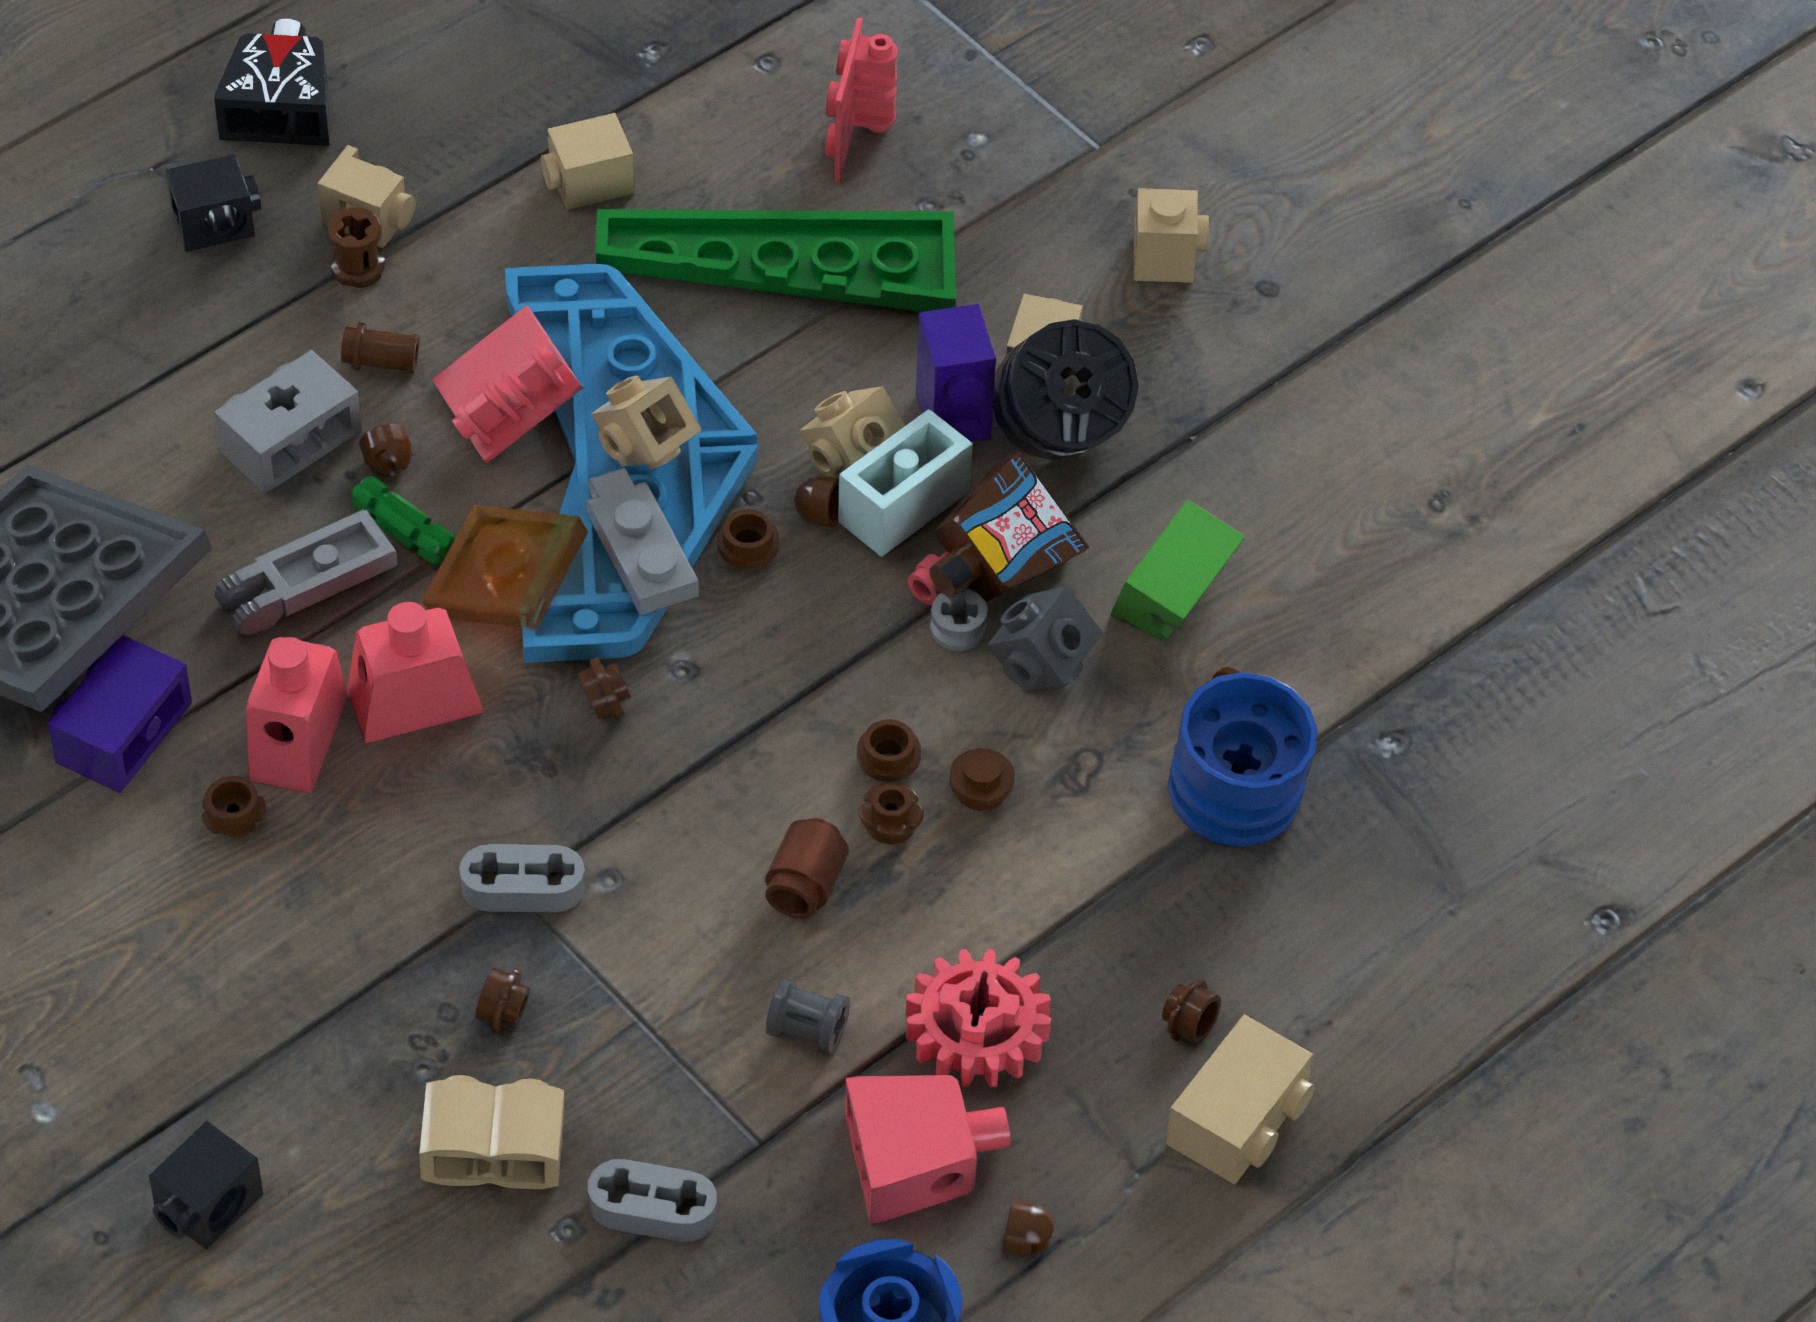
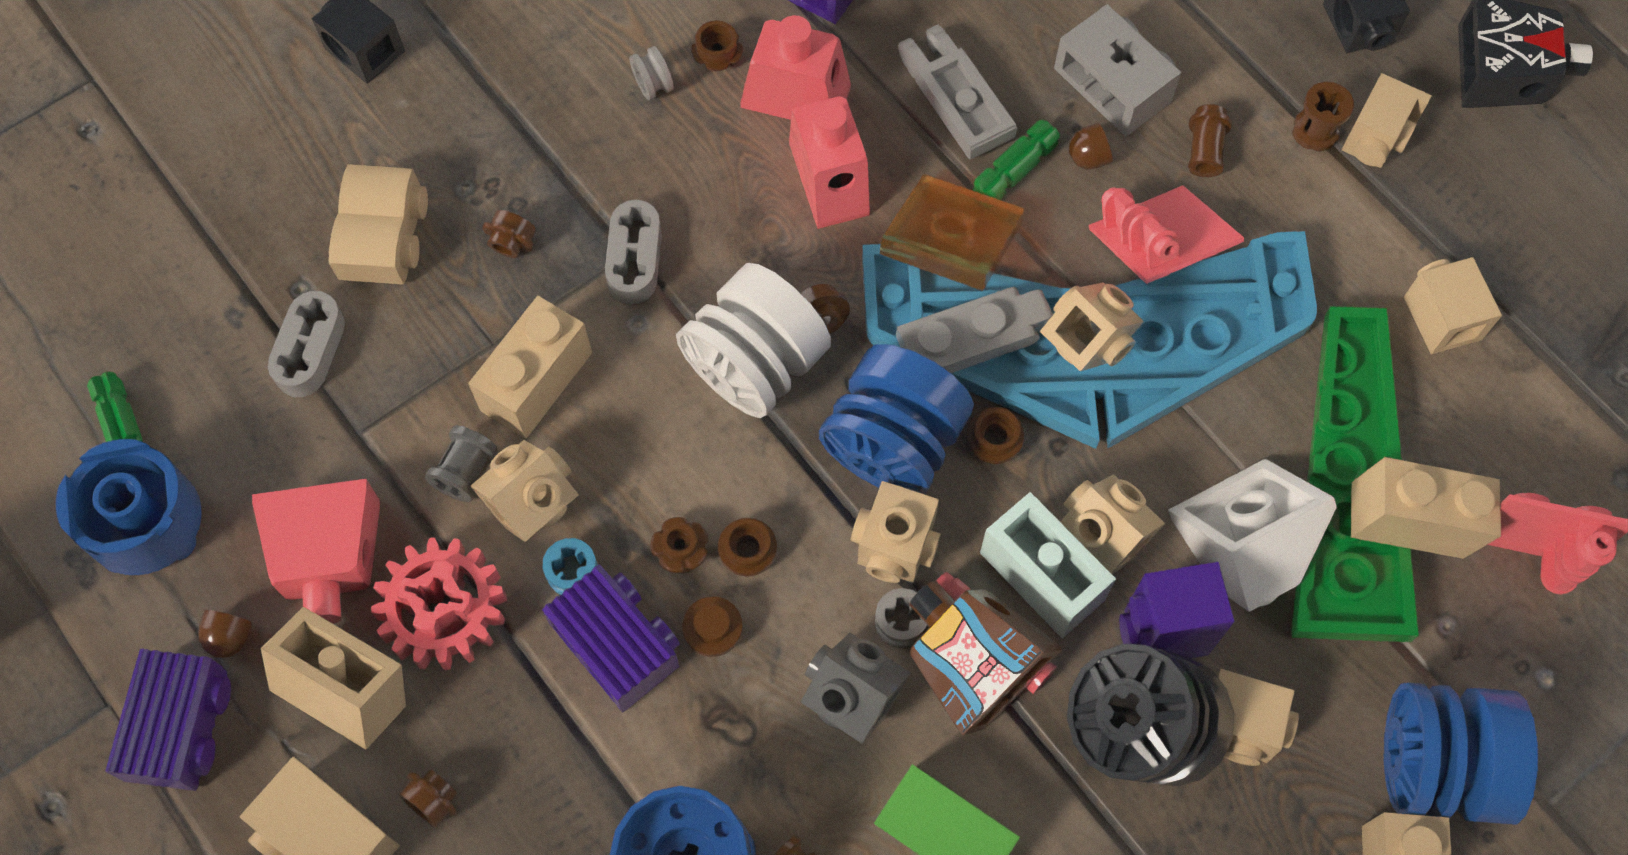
camera: 95 degrees right, 15 degrees up
(275, 866) = (651, 73): none -> light grey bush
(660, 725) = (754, 339): none -> white wheel
(688, 950) = (531, 367): none -> tan brick
(753, 597) = (896, 418): none -> blue wheel
(805, 867) = (615, 466): copper brick -> none
(818, 501) = (1046, 491): reddish brown hinge -> none
(834, 181) = (1425, 508): none -> tan brick
(843, 939) = (526, 488): none -> tan brick
(846, 324) = (1258, 529): none -> white slope
(875, 608) = (896, 533): none -> tan brick
(935, 899) = (555, 559): none -> dark azure bush
(1005, 856) = (612, 636): none -> dark purple brick
(1074, 181) = (1460, 753): none -> blue wheel
(1077, 1090) = (334, 677): none -> tan brick
(1133, 1260) = (169, 720): none -> dark purple brick

